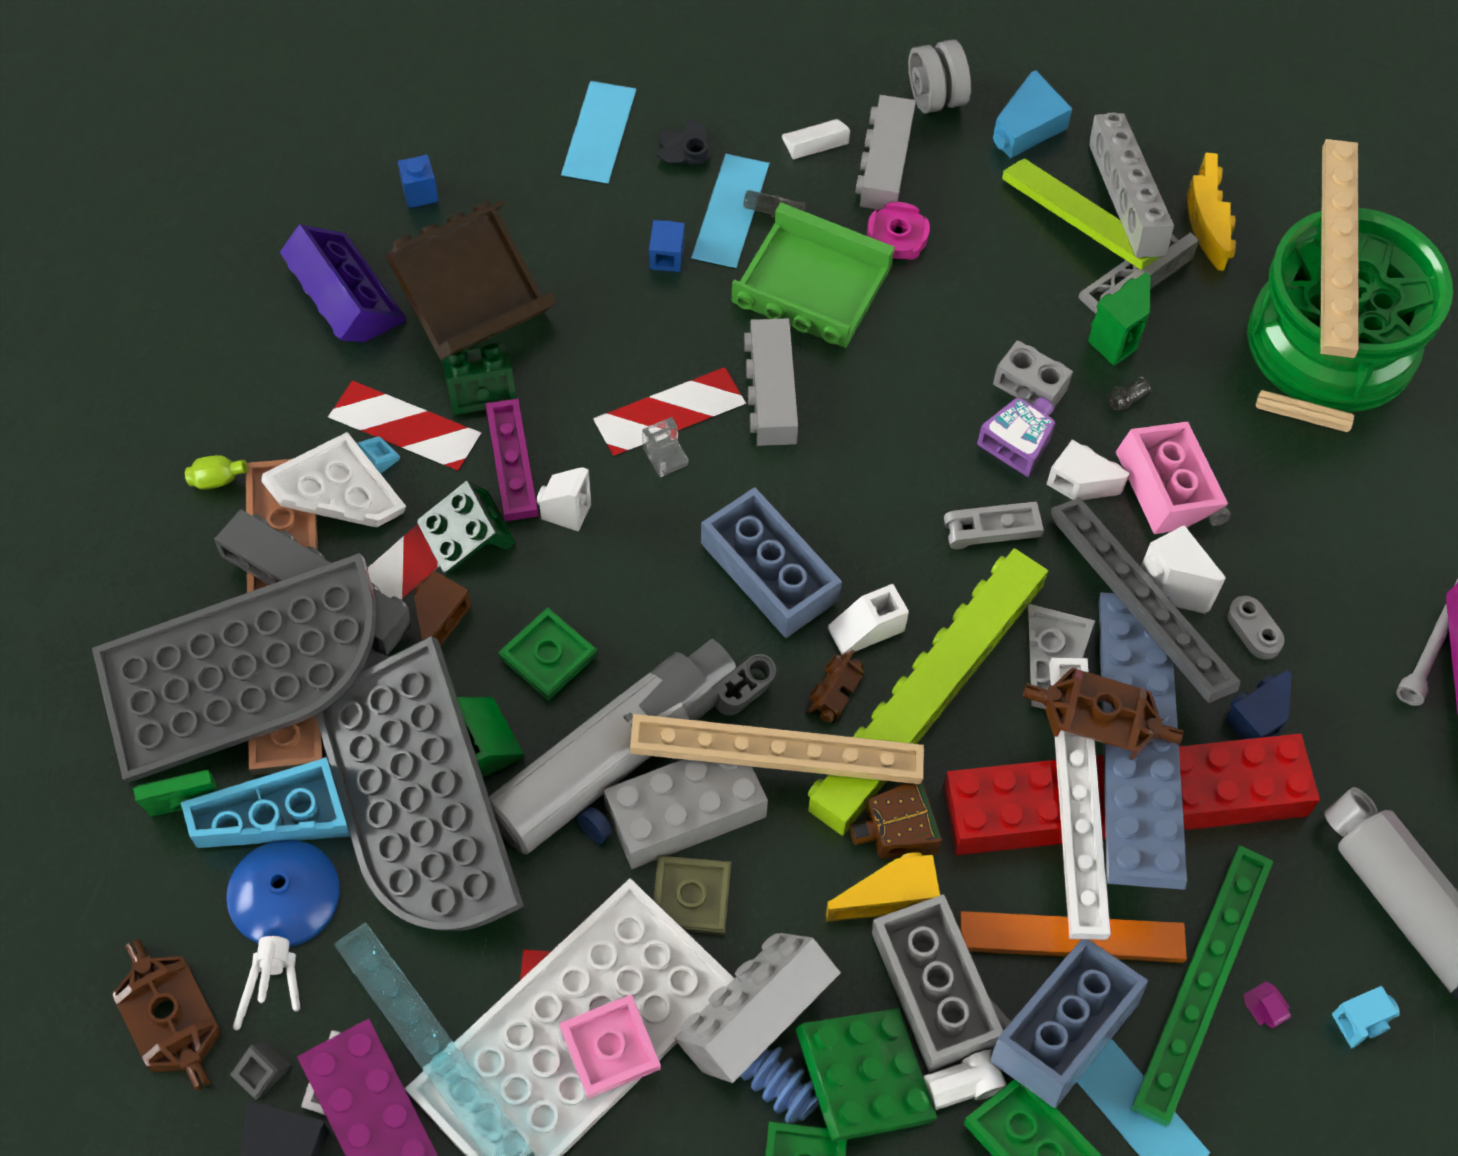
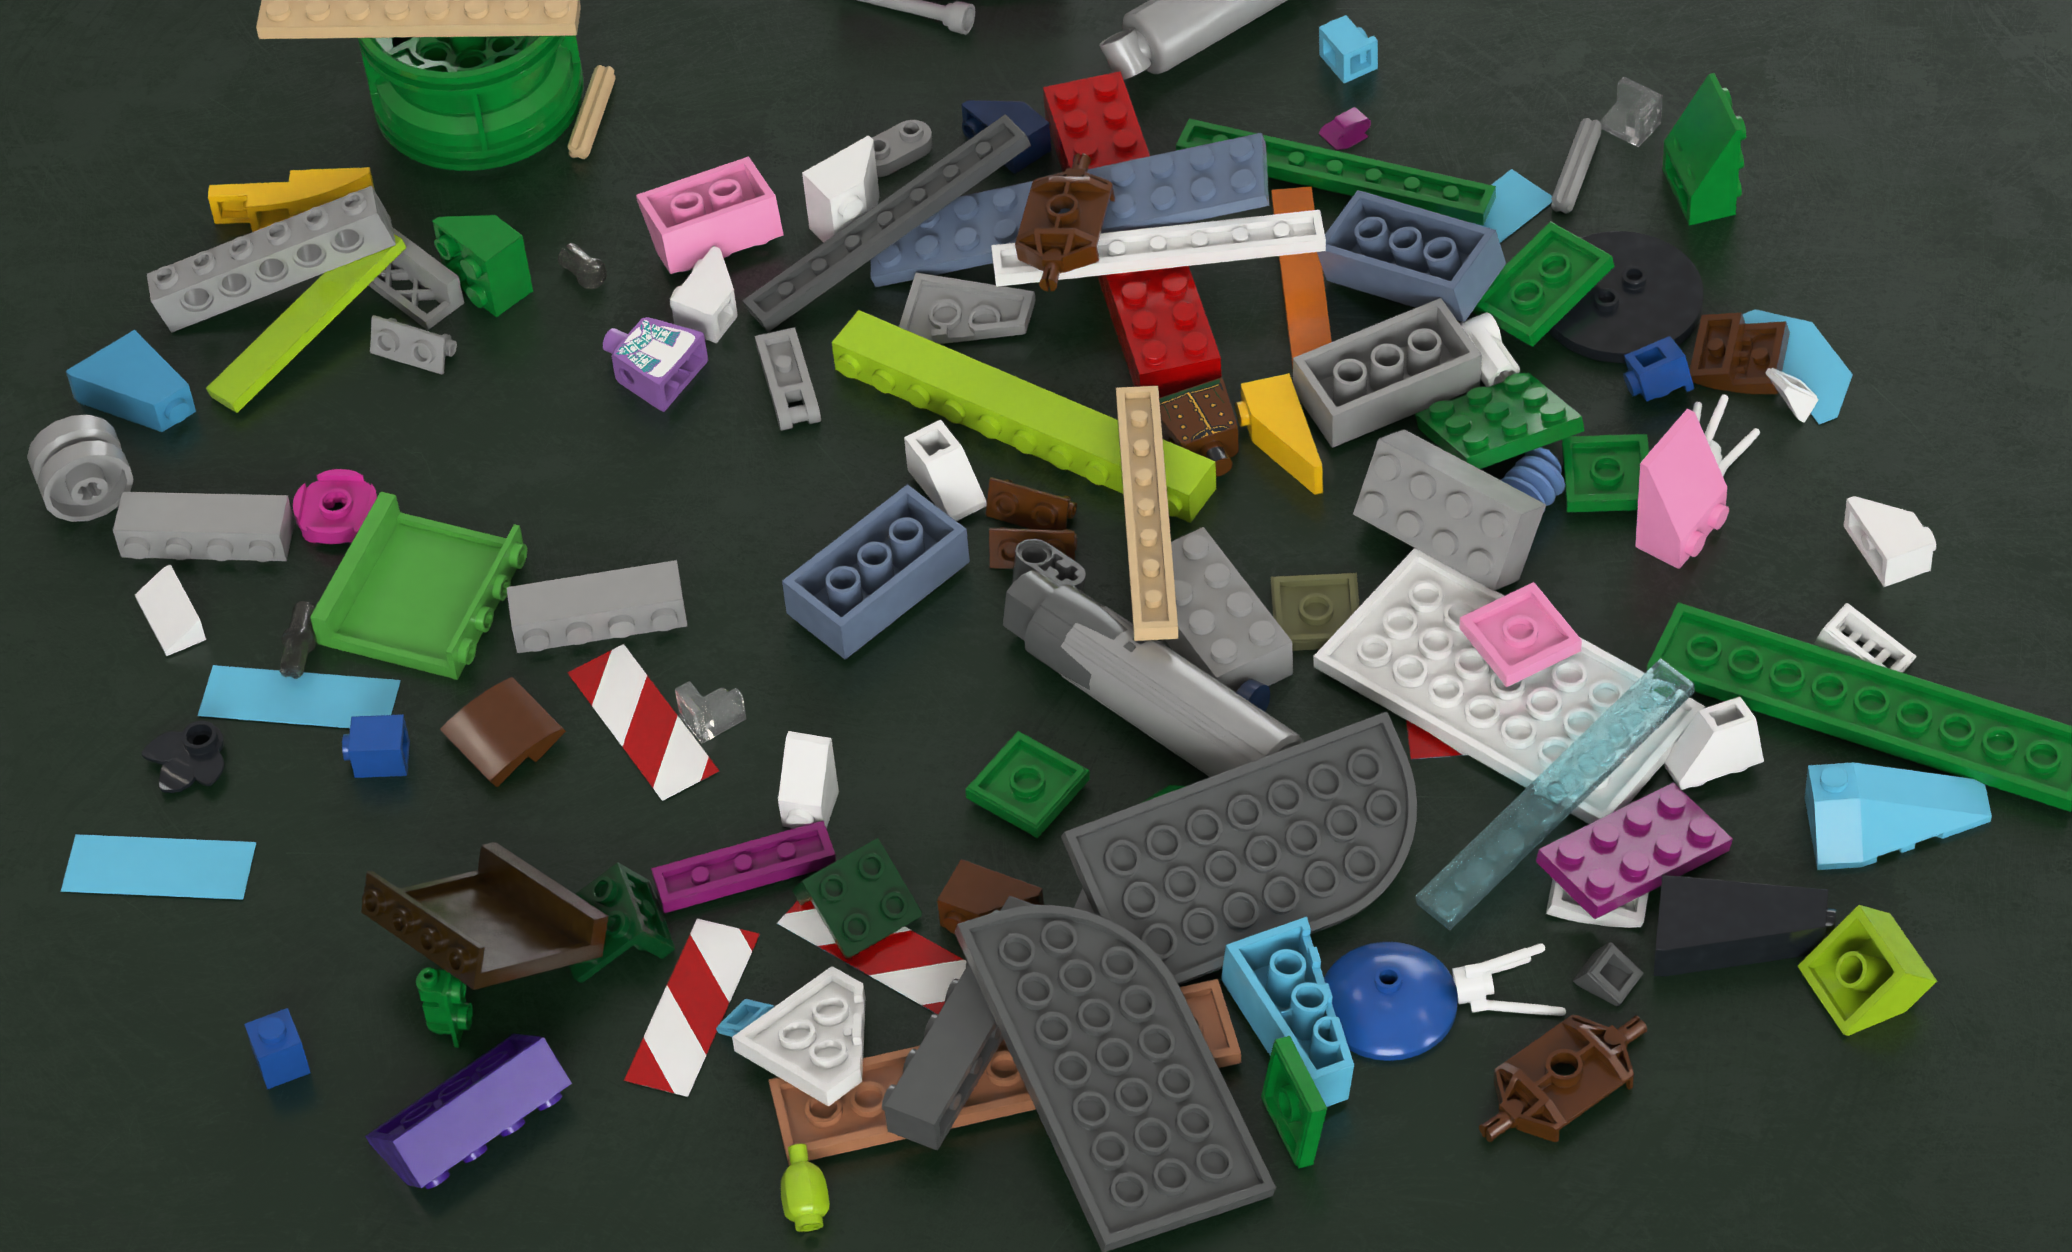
camera: 90 degrees left, 10 degrees down
(670, 320) = (502, 730): none -> reddish brown slope
(792, 669) = (1004, 542): none -> reddish brown hinge
(1033, 376) = (567, 354): light grey brick -> none
(1050, 289) = (410, 344): none -> light grey hinge

